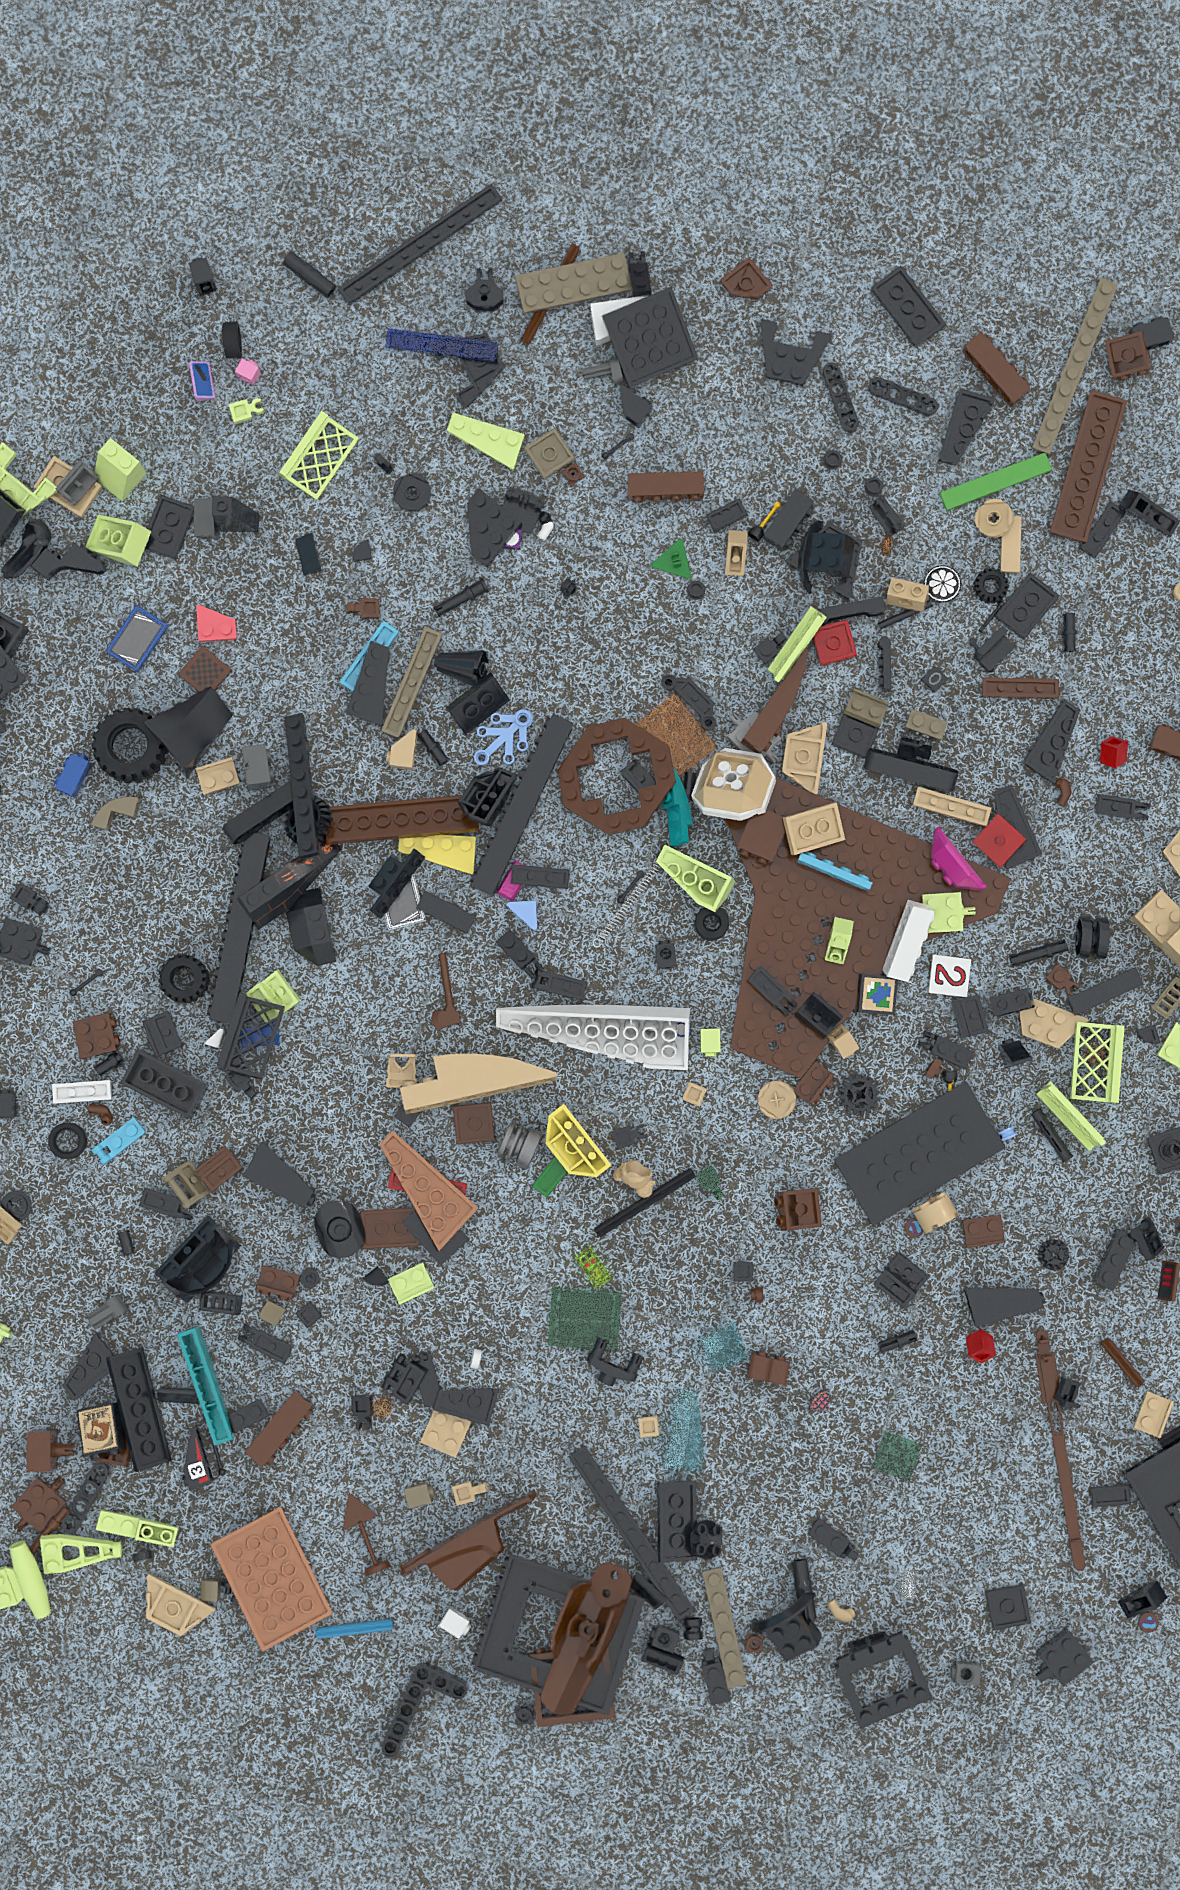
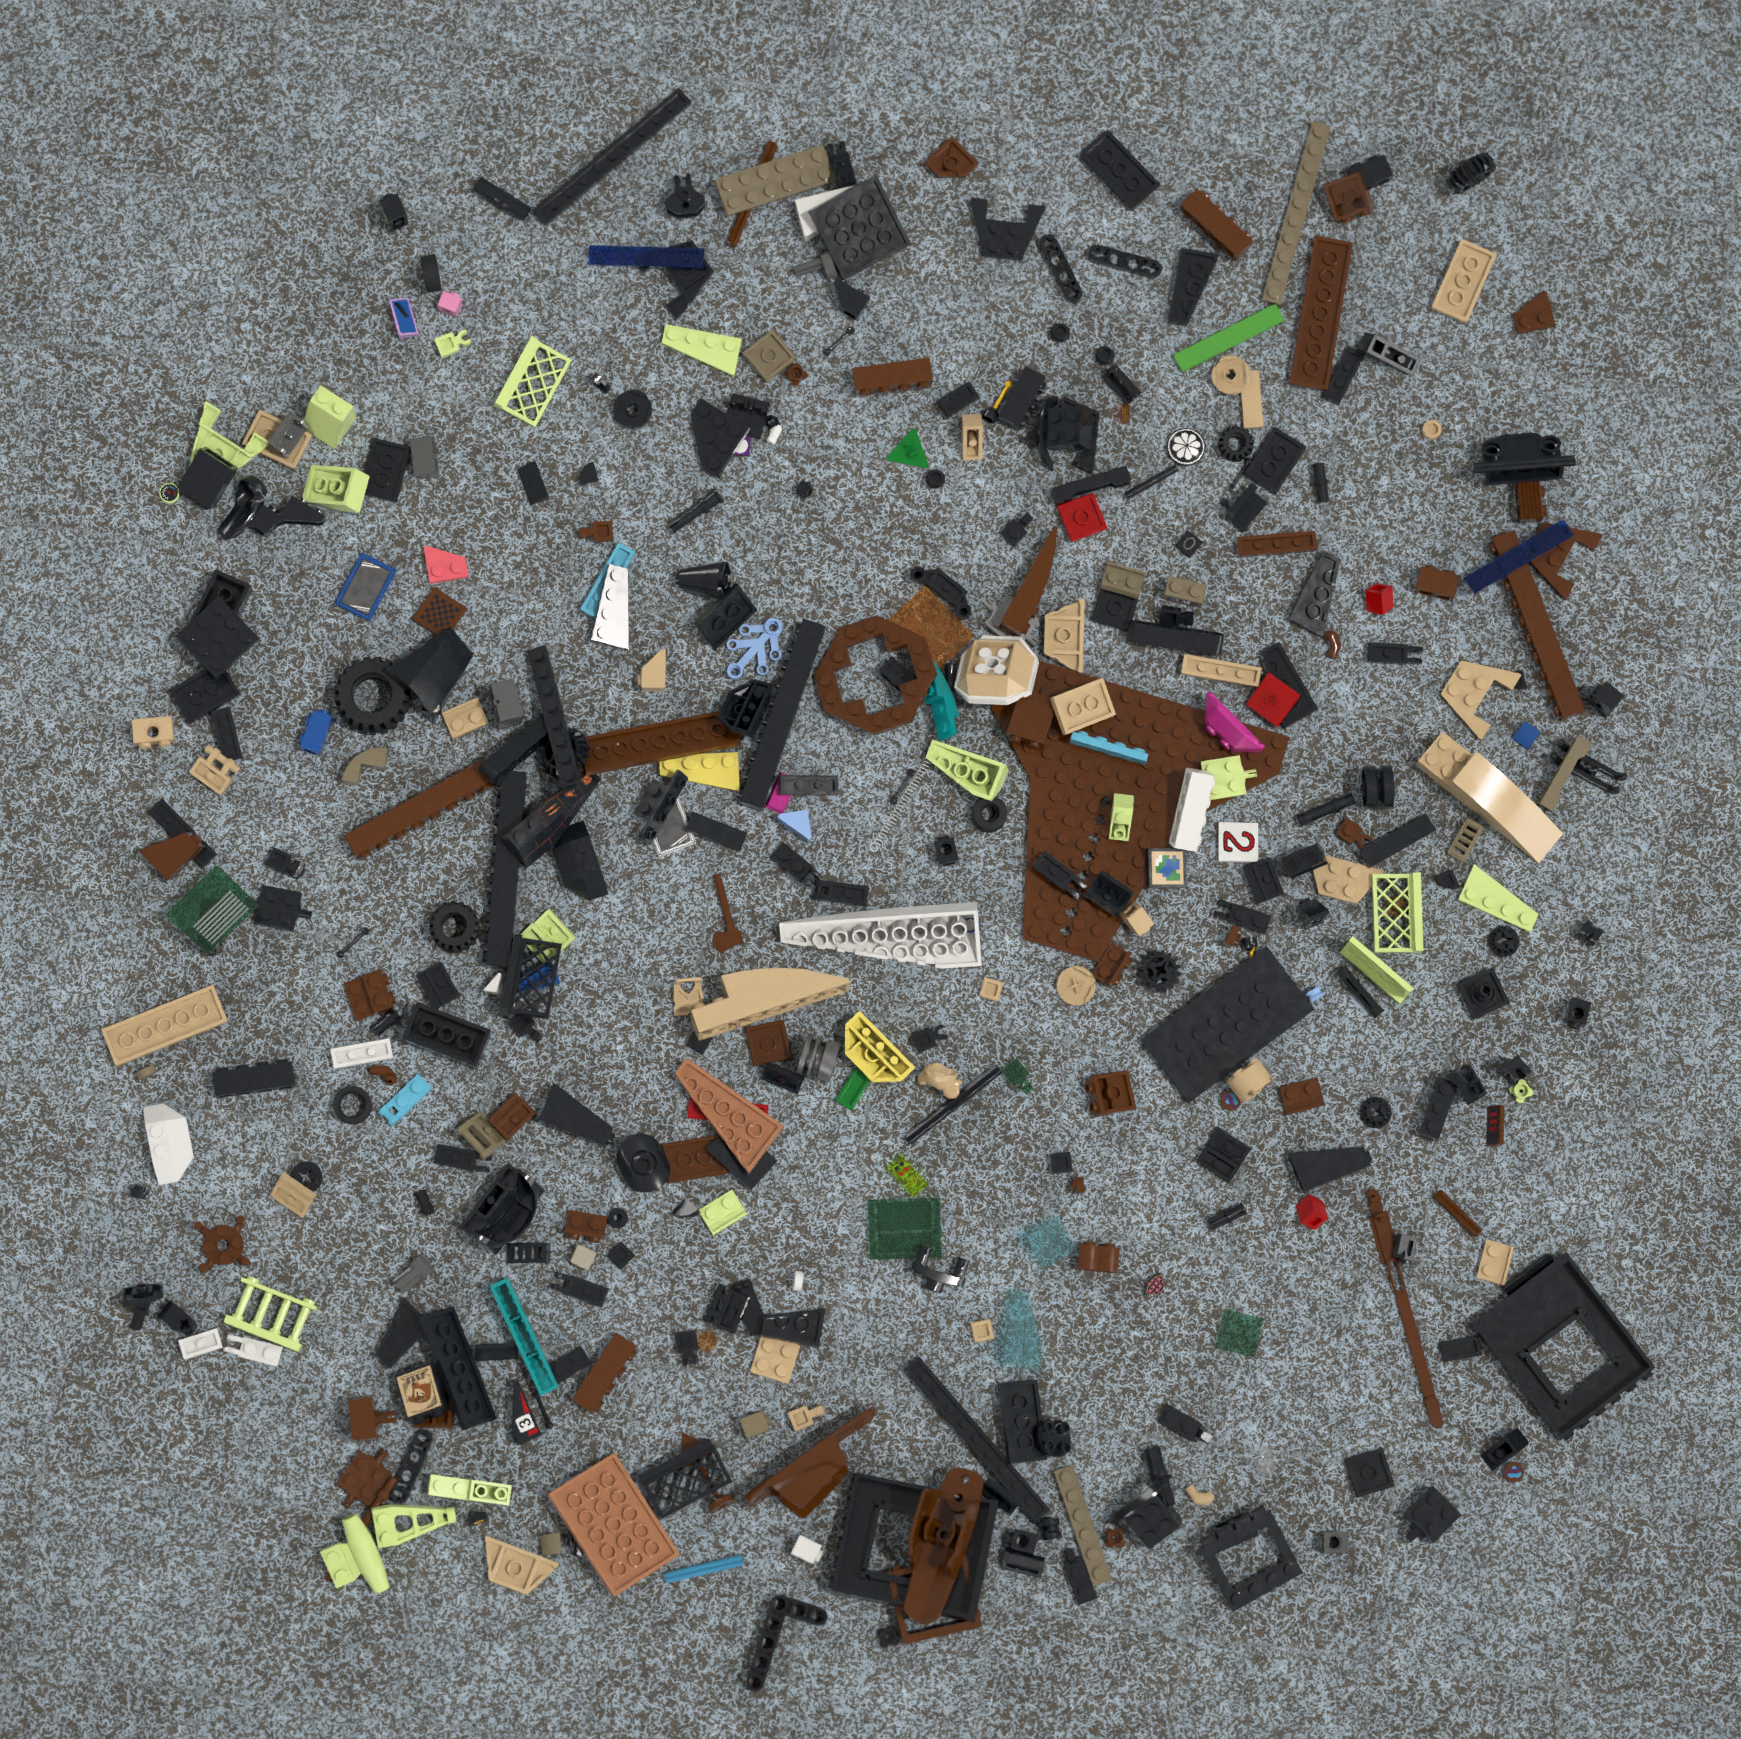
camera: 15 degrees left, 5 degrees down
(160, 861) = (417, 810): none -> reddish brown brick
(233, 515) = (455, 451): black slope -> none
(337, 1525) = (677, 1462): none -> black fence
(412, 682) = (654, 602): dark tan plate -> none
(433, 747) = (683, 666): black pin -> none
(483, 1159) = (783, 1077): none -> black plate
(710, 1042) = (1001, 934): yellowish green brick -> none
(796, 643) = (1044, 522): yellowish green fence -> none
(885, 663) = (1136, 532): black plate -> none
(907, 594) = (1151, 461): tan brick -> none

